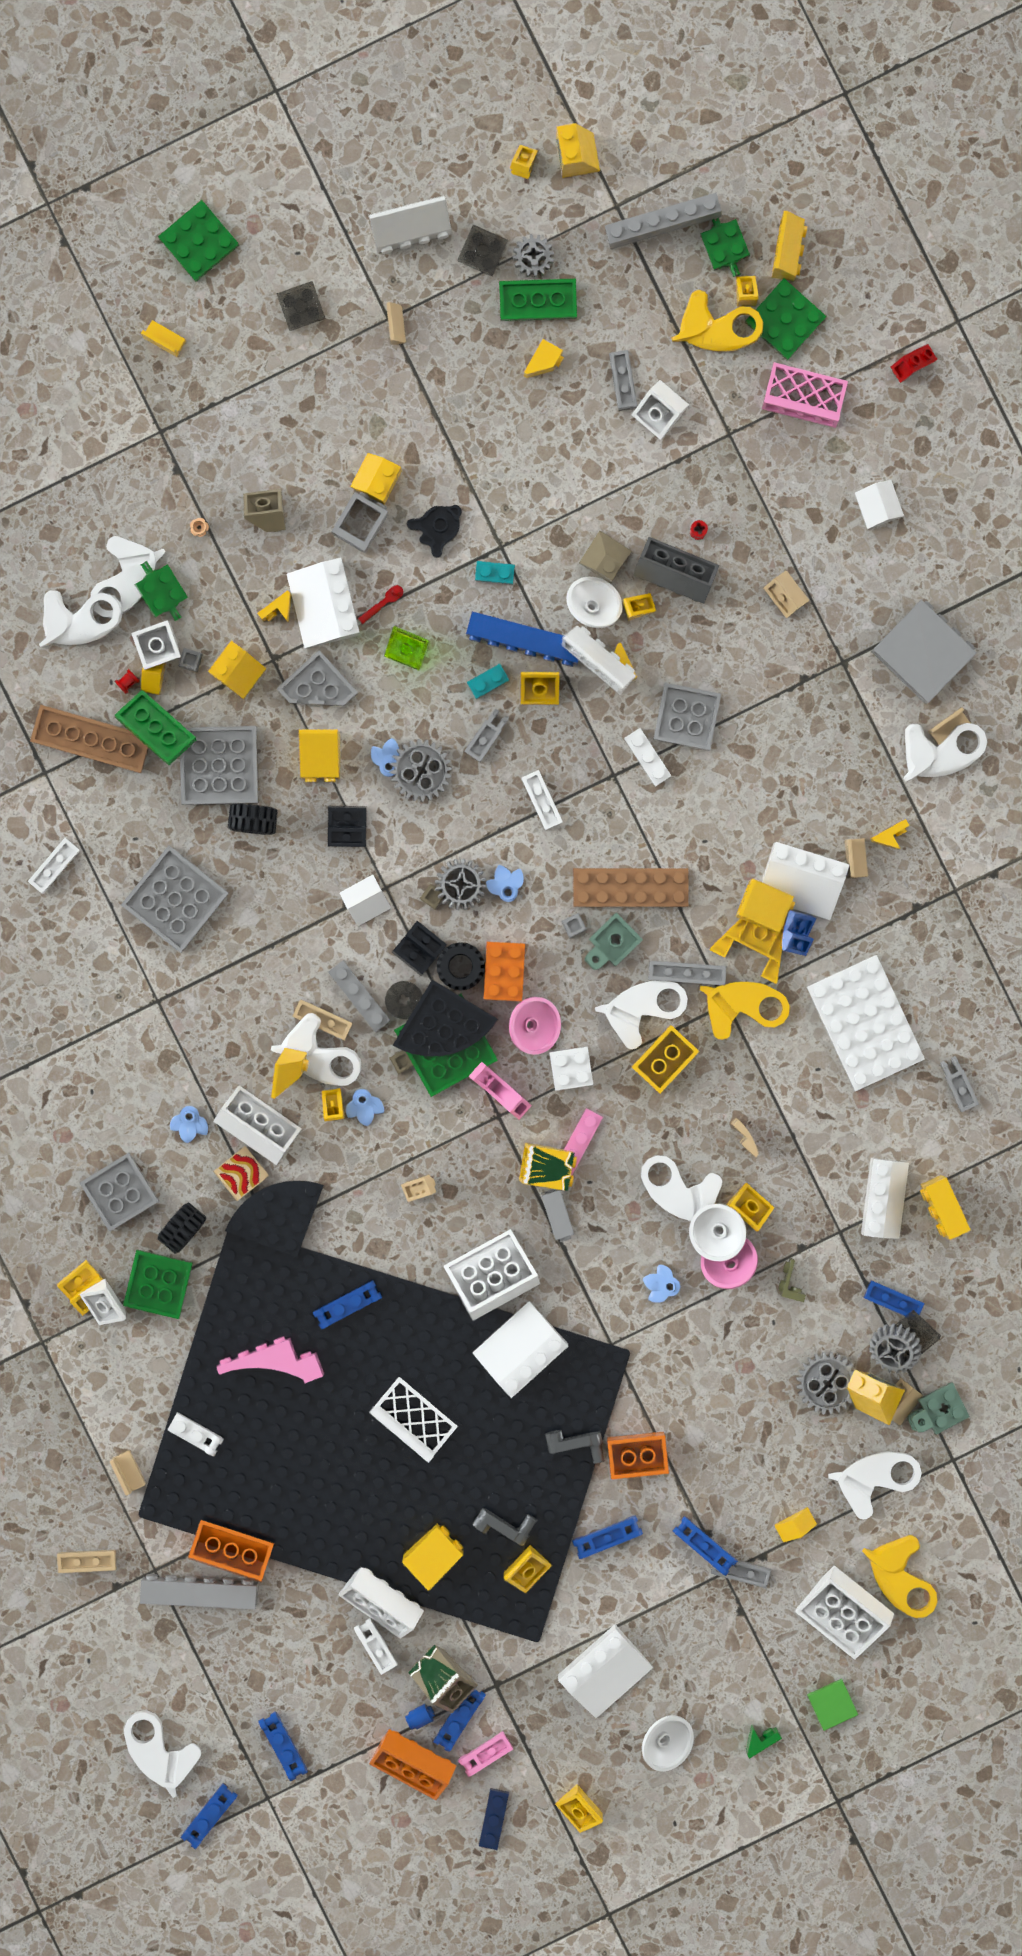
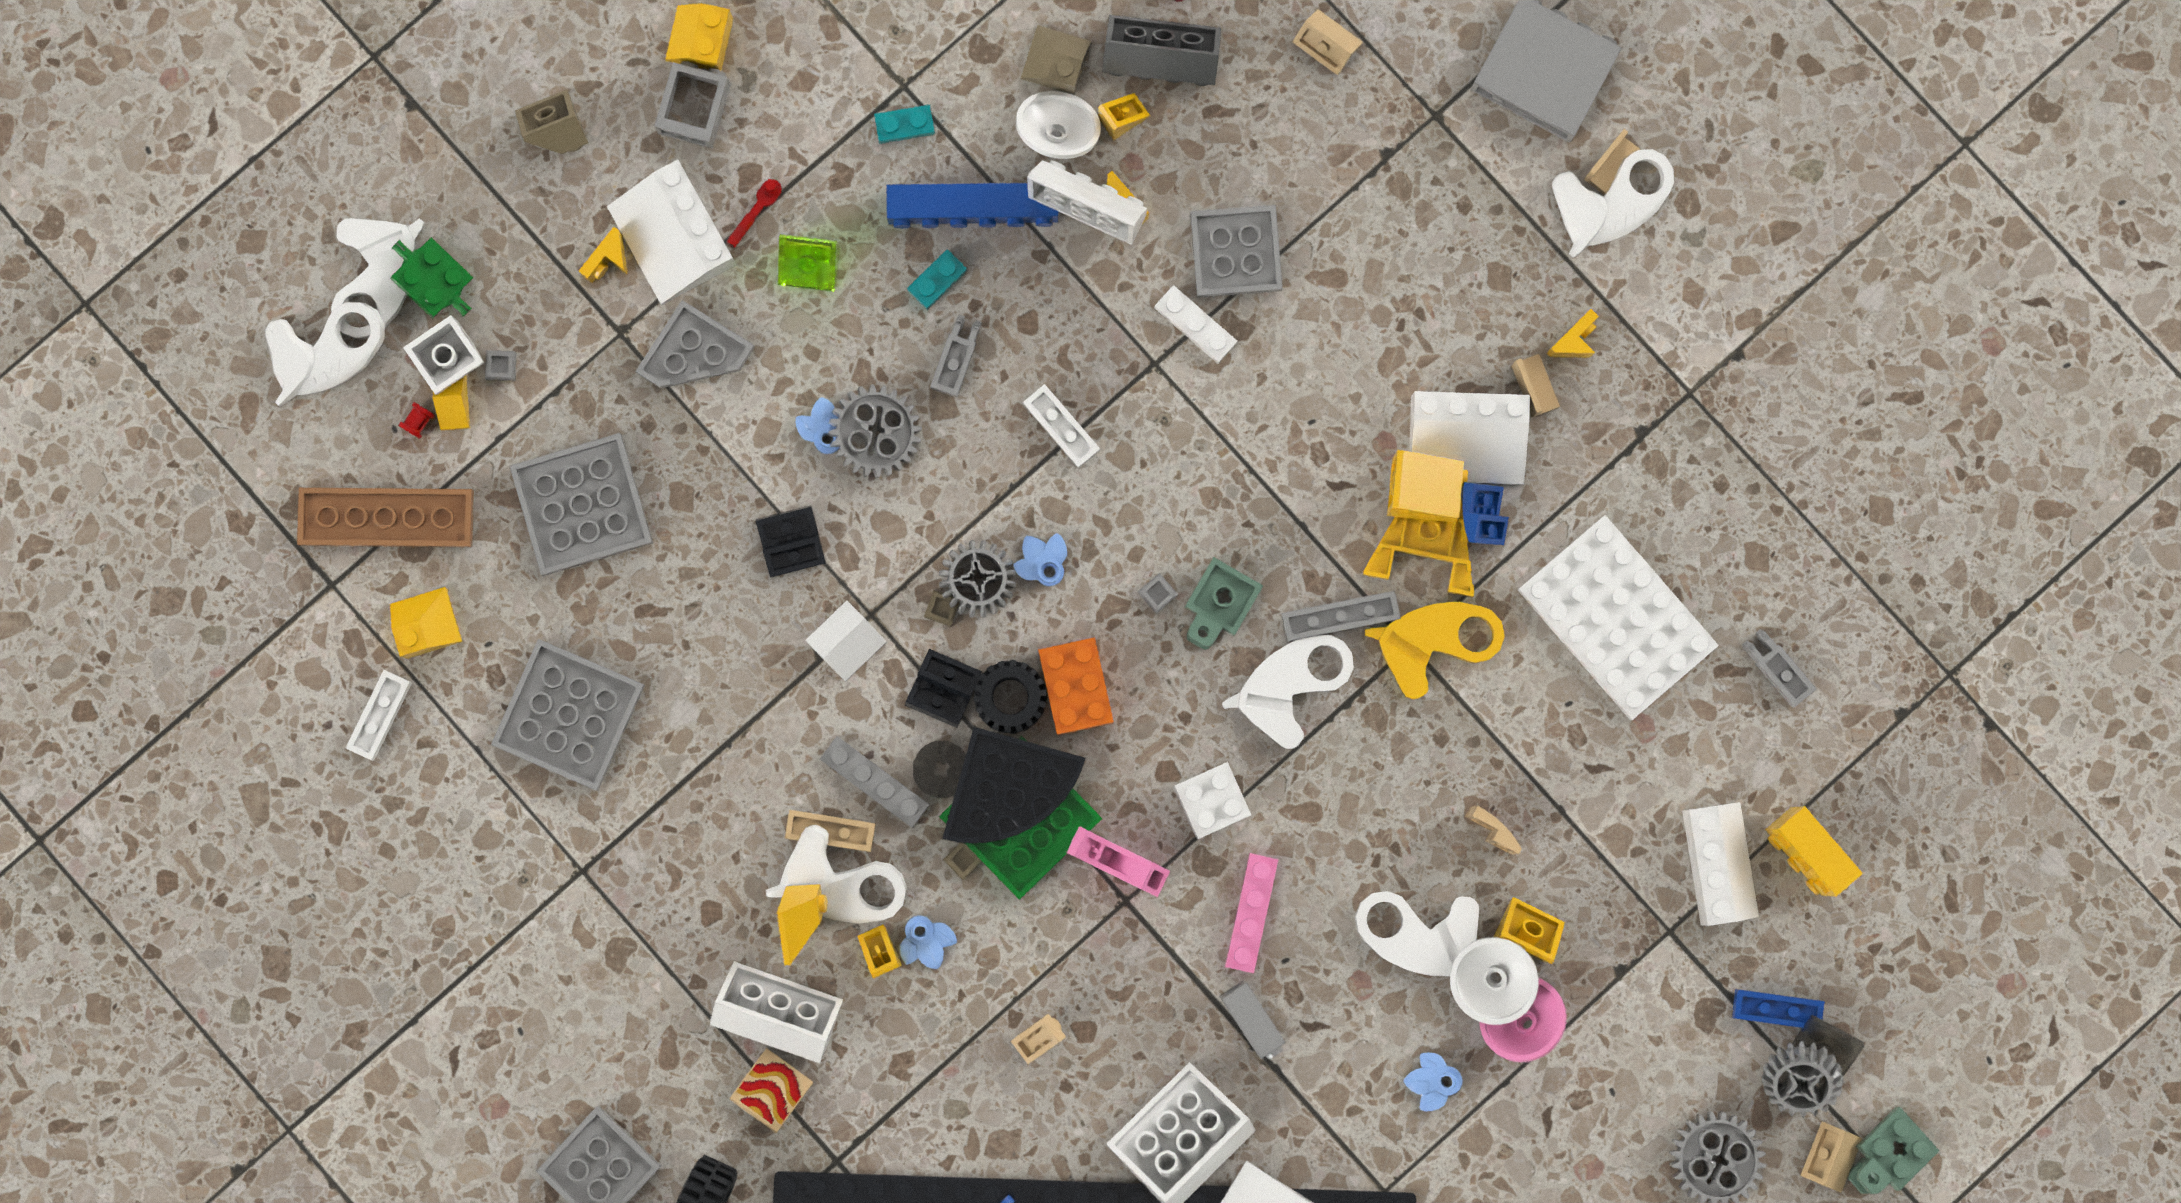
camera: 20 degrees left, 5 degrees down
(98, 814) = (424, 623): none -> yellow slope
(155, 727) = (474, 474): green plate -> none
(189, 1126) = (675, 1043): light blue plate -> none
(199, 522) = (463, 167): light nougat plate -> none
(237, 669) = (570, 359): yellow slope -> none
(252, 819) = (649, 566): black tyre -> none
(277, 1215) = (842, 1138): black plate -> none
(319, 755) = (722, 447): yellow slope -> none
(438, 527) = (806, 82): black tile -> none
(540, 688) = (1014, 267): yellow slope -> none
(543, 1028) = (1154, 749): bright pink dish -> none
(547, 1167) = (1218, 954): slope -> none
(630, 887) = (1224, 516): medium nougat plate -> none
(665, 1059) = (1344, 748): yellow brick -> none
(794, 1292) = (1631, 1038): olive bracket -> none
(874, 1396) = (1794, 1159): yellow slope -> none

